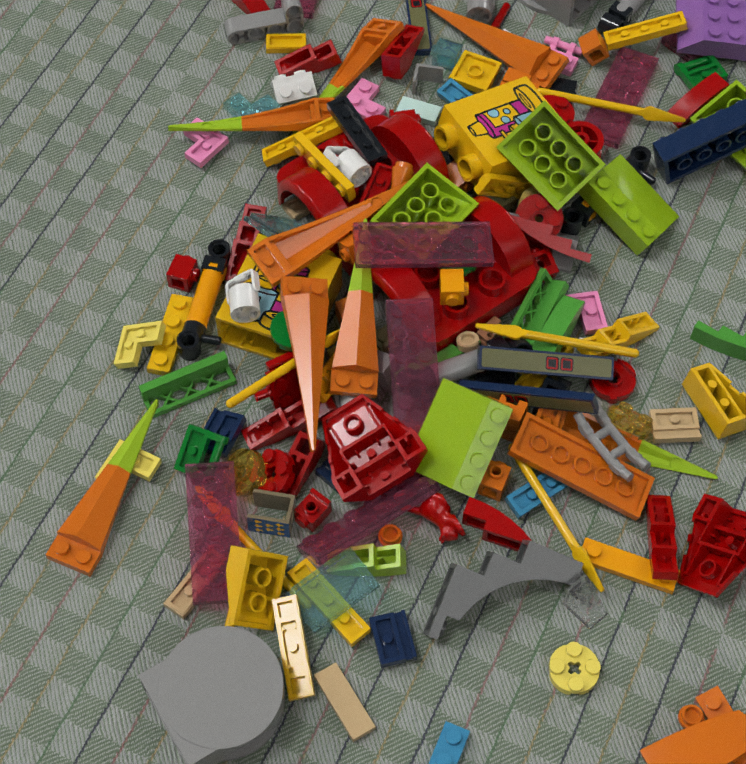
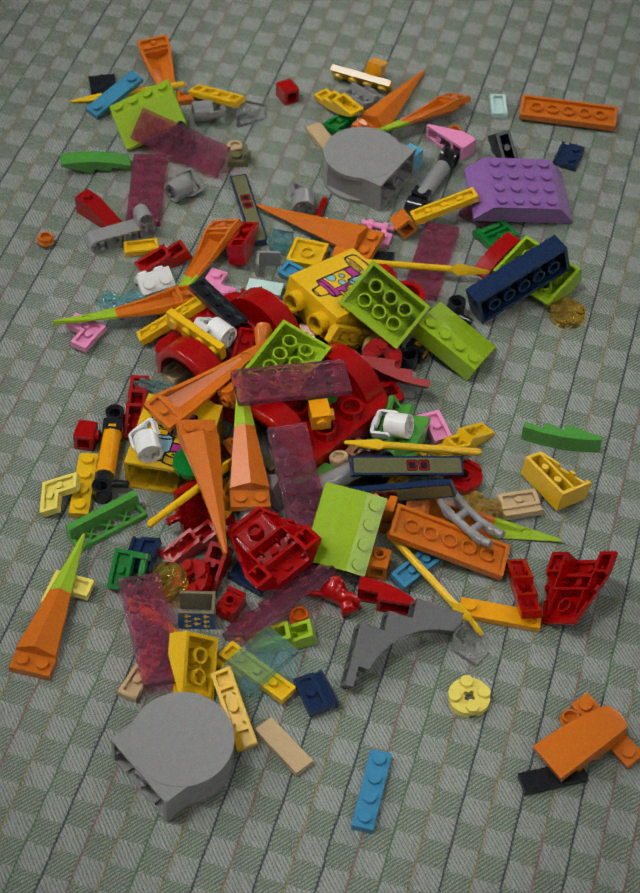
camera: 10 degrees left, 10 degrees down
(179, 21) = (45, 239): none -> orange plate
(539, 308) = (395, 424): none -> white piece

